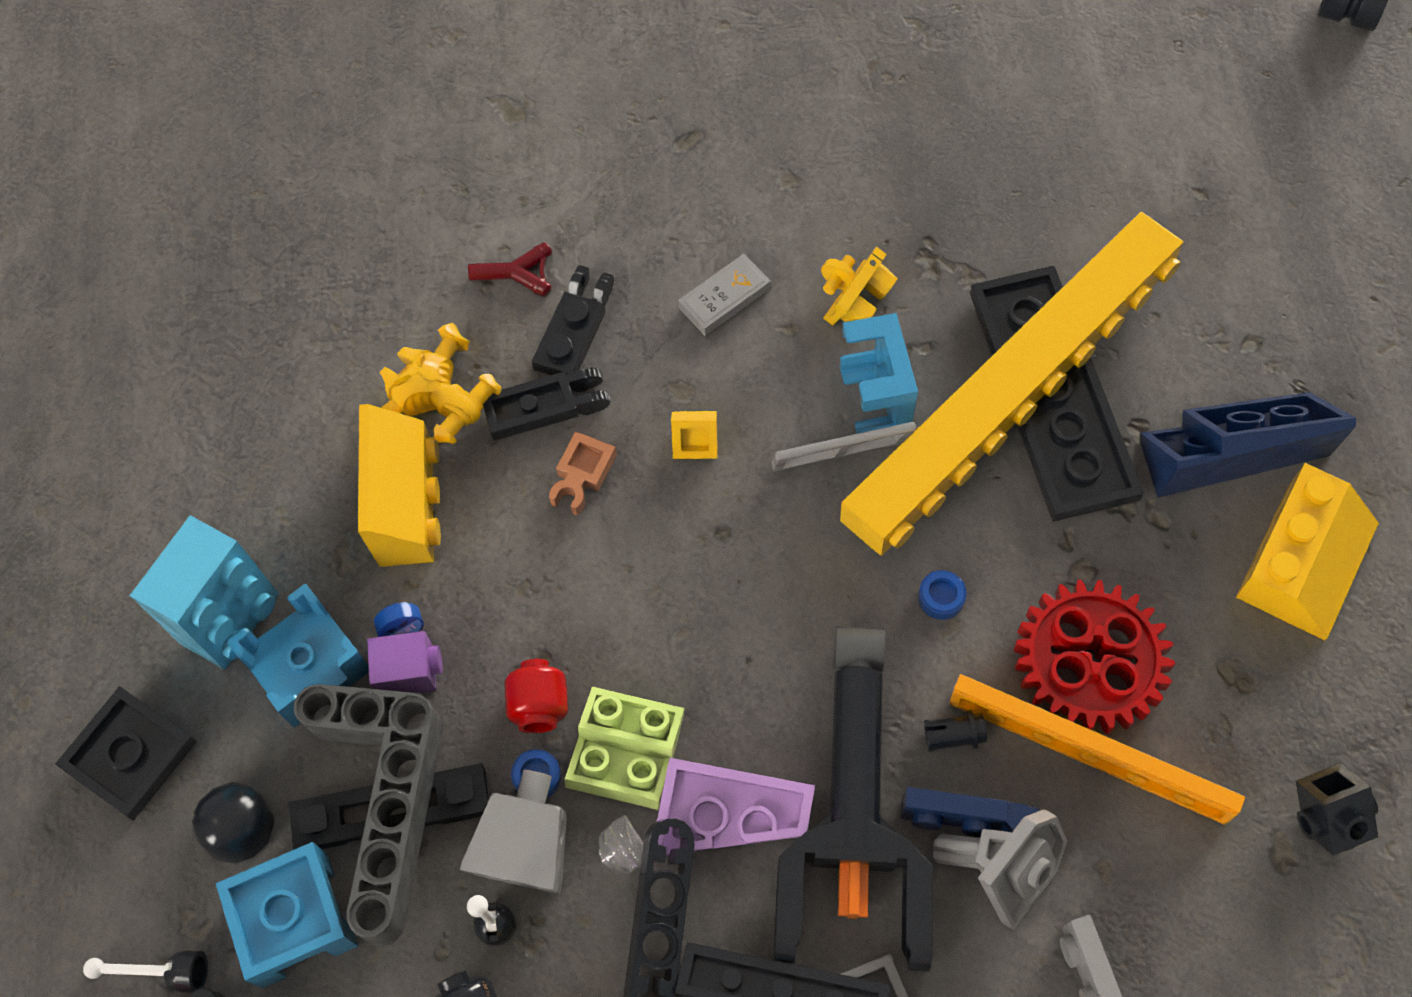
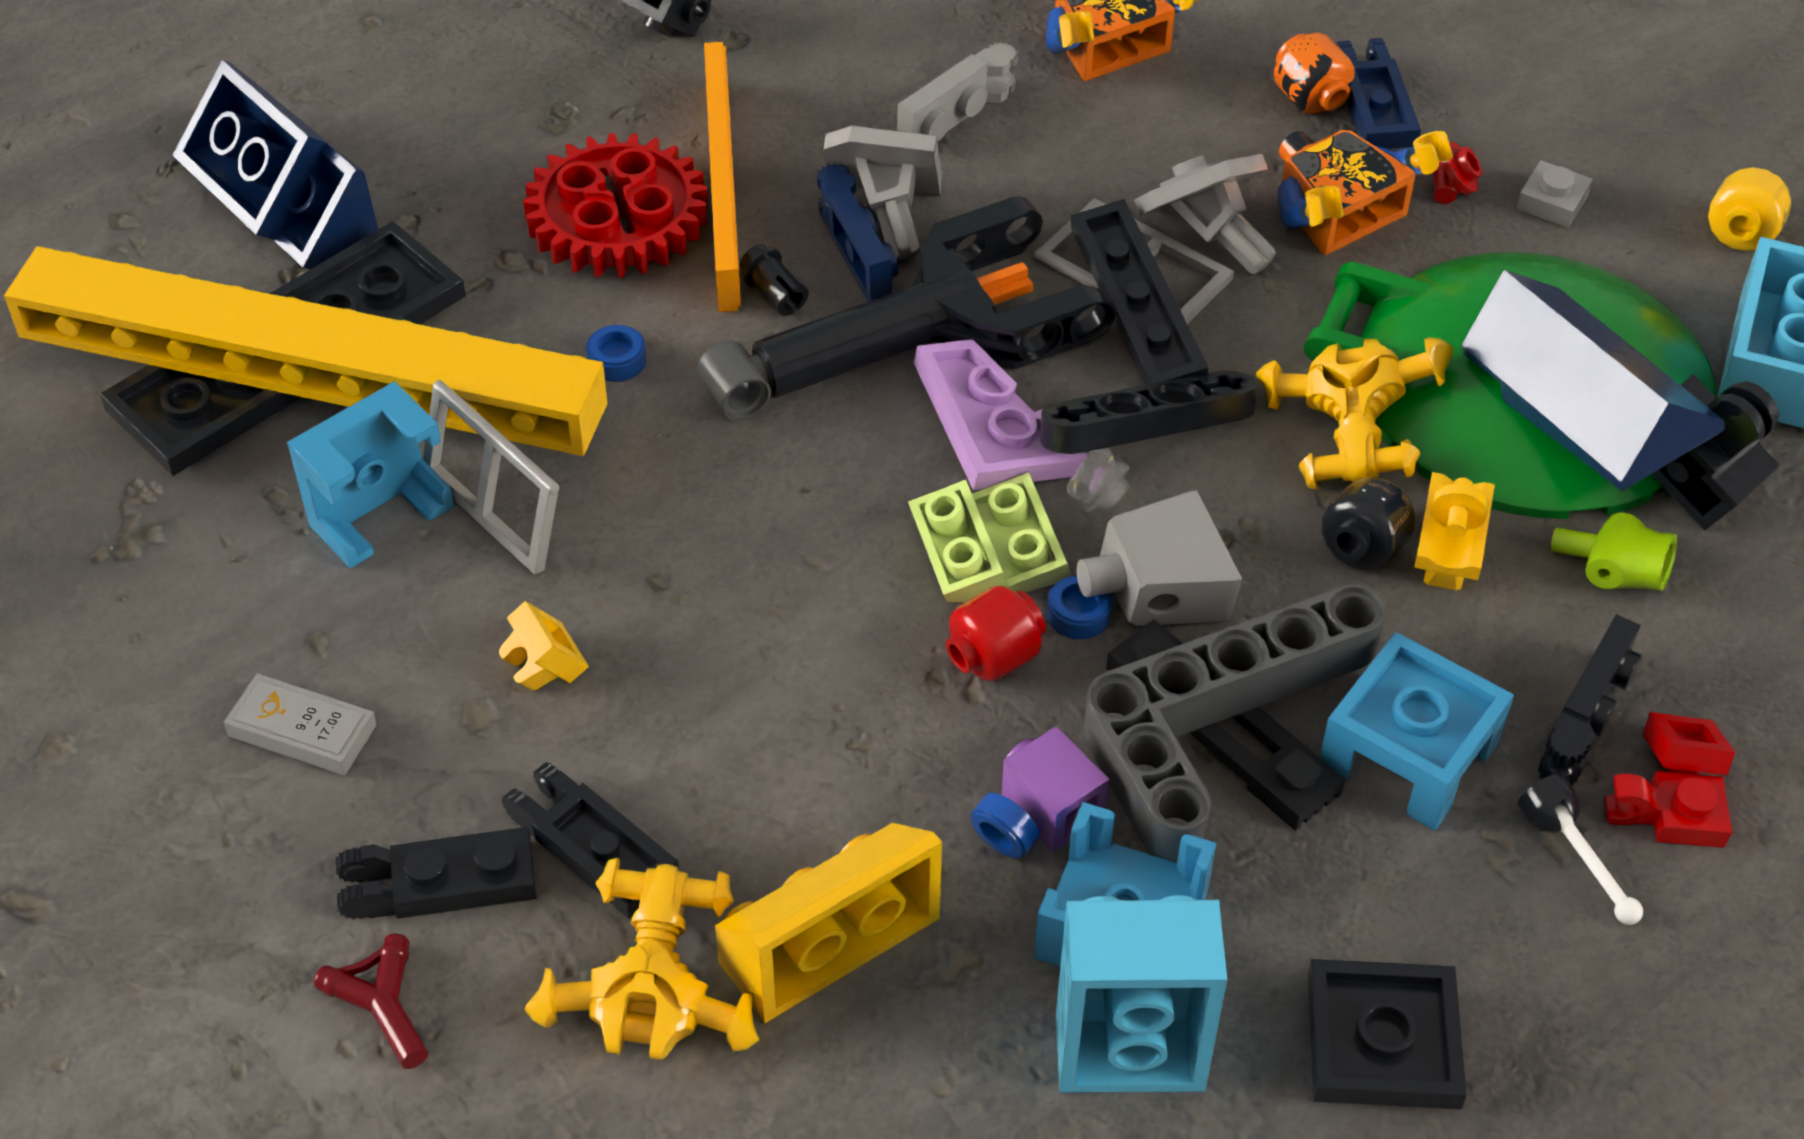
camera: 125 degrees left, 15 degrees down
(232, 822) = (1365, 866): black hair -> none
(488, 921) = (1270, 555): black hinge -> none
(582, 466) = (660, 742): nougat plate -> none
(869, 275) = (226, 575): yellow hips -> none
(1310, 552) = (388, 99): yellow slope -> none

